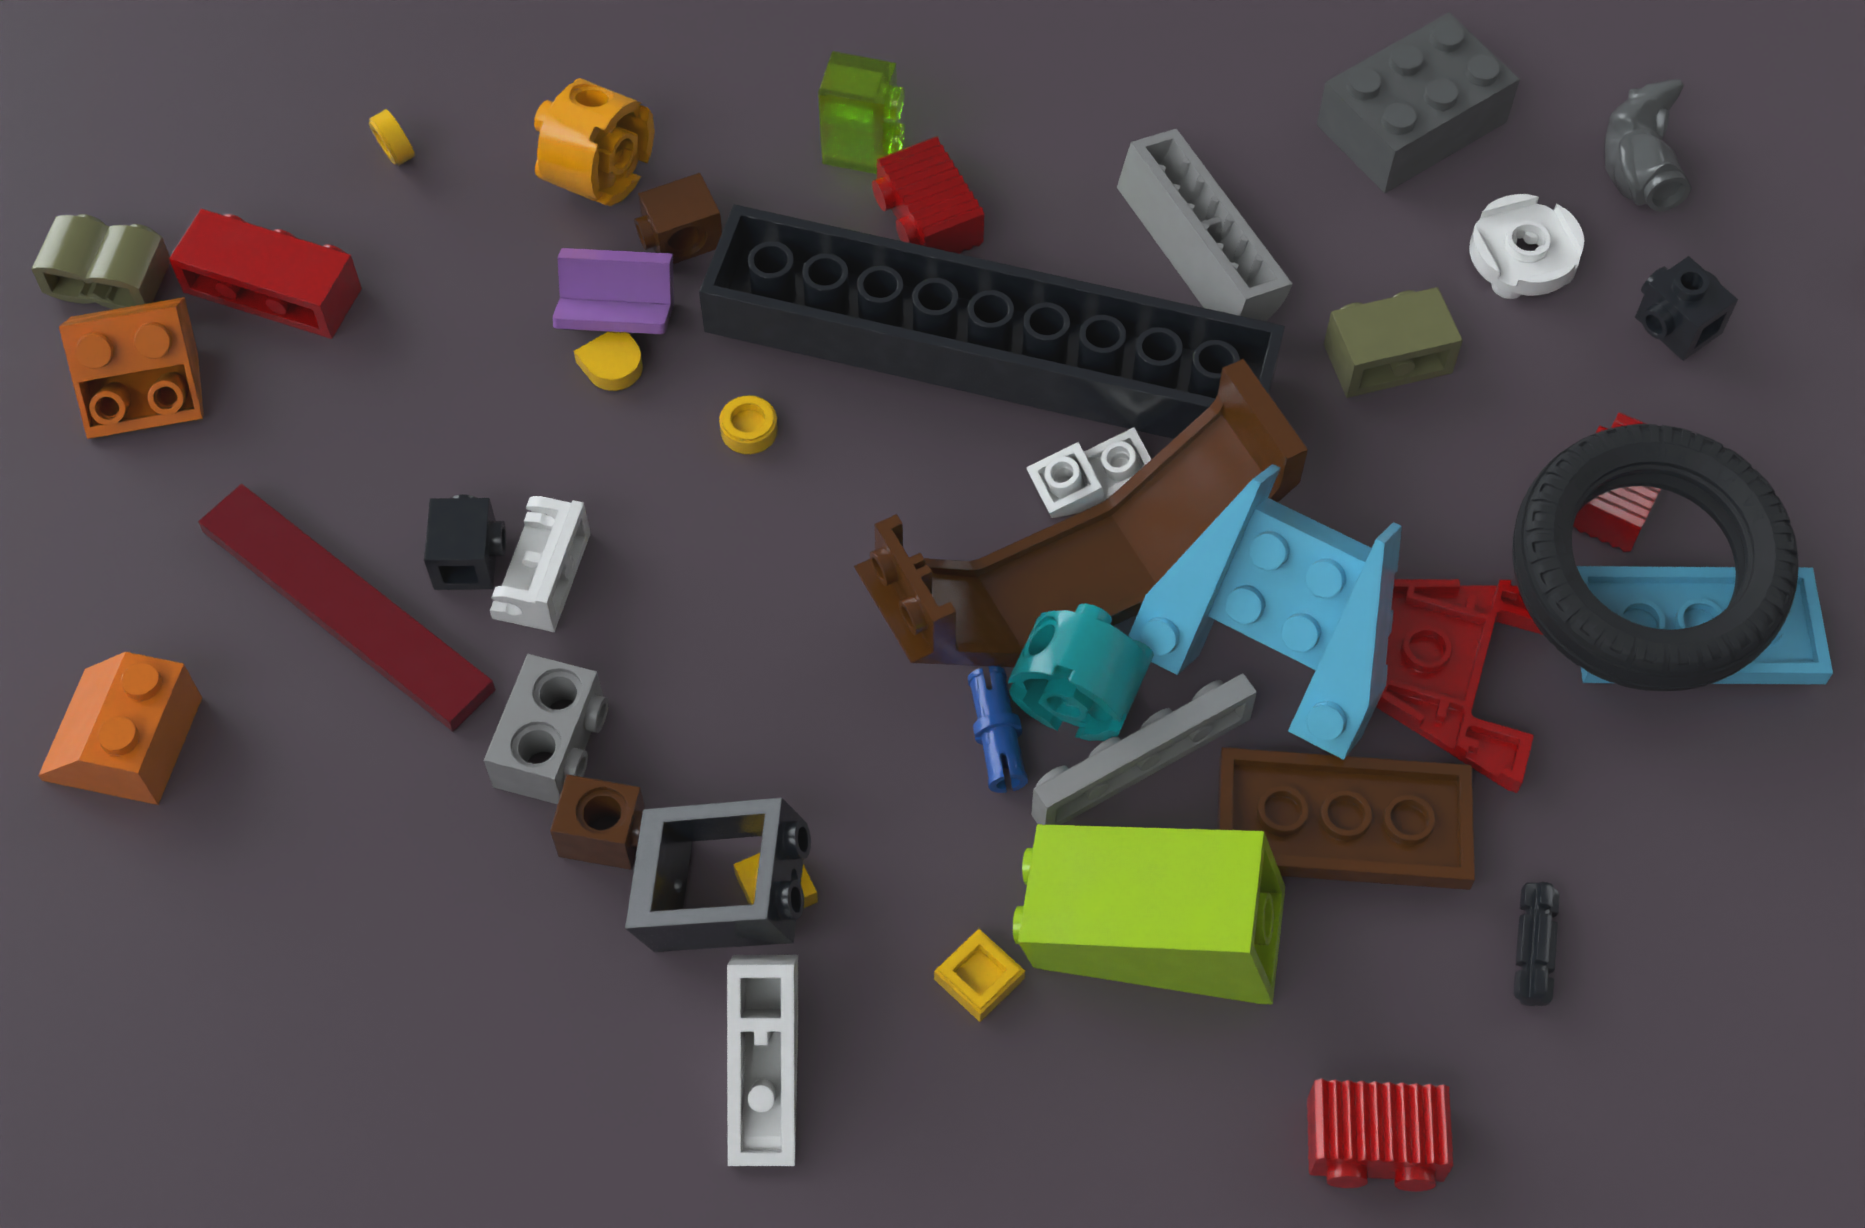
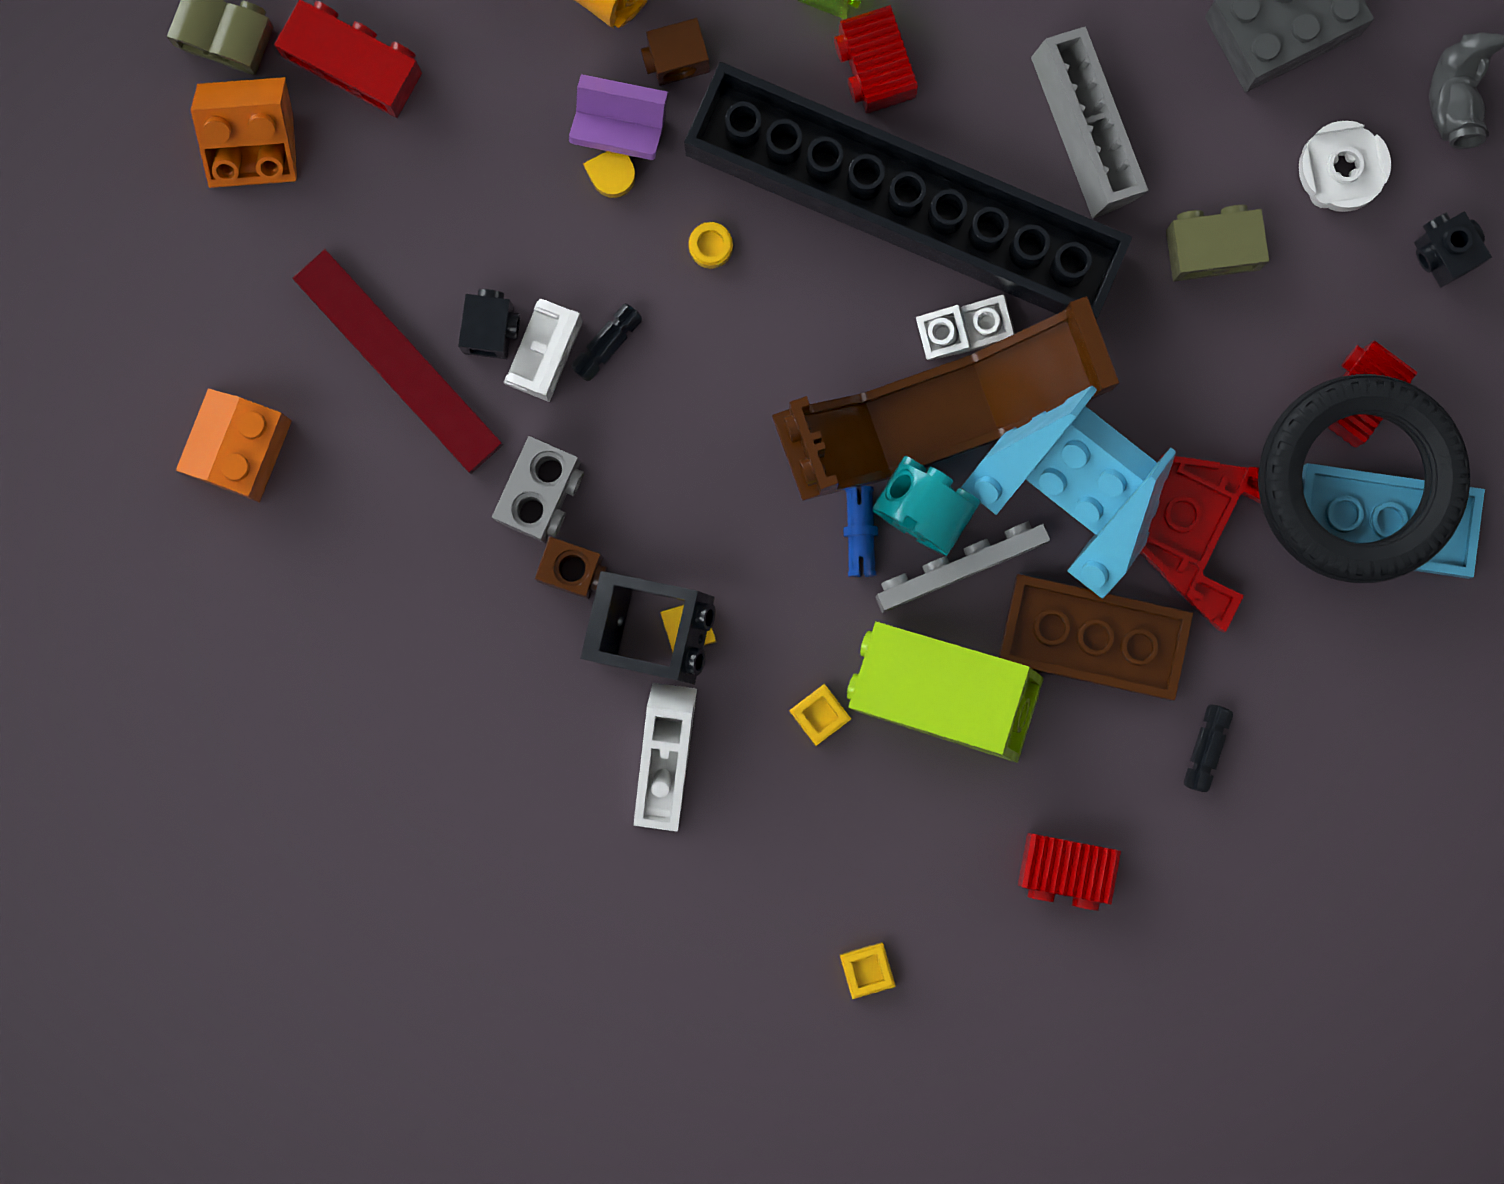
camera: 10 degrees right, 25 degrees up
(624, 547) = (606, 342): none -> black axle

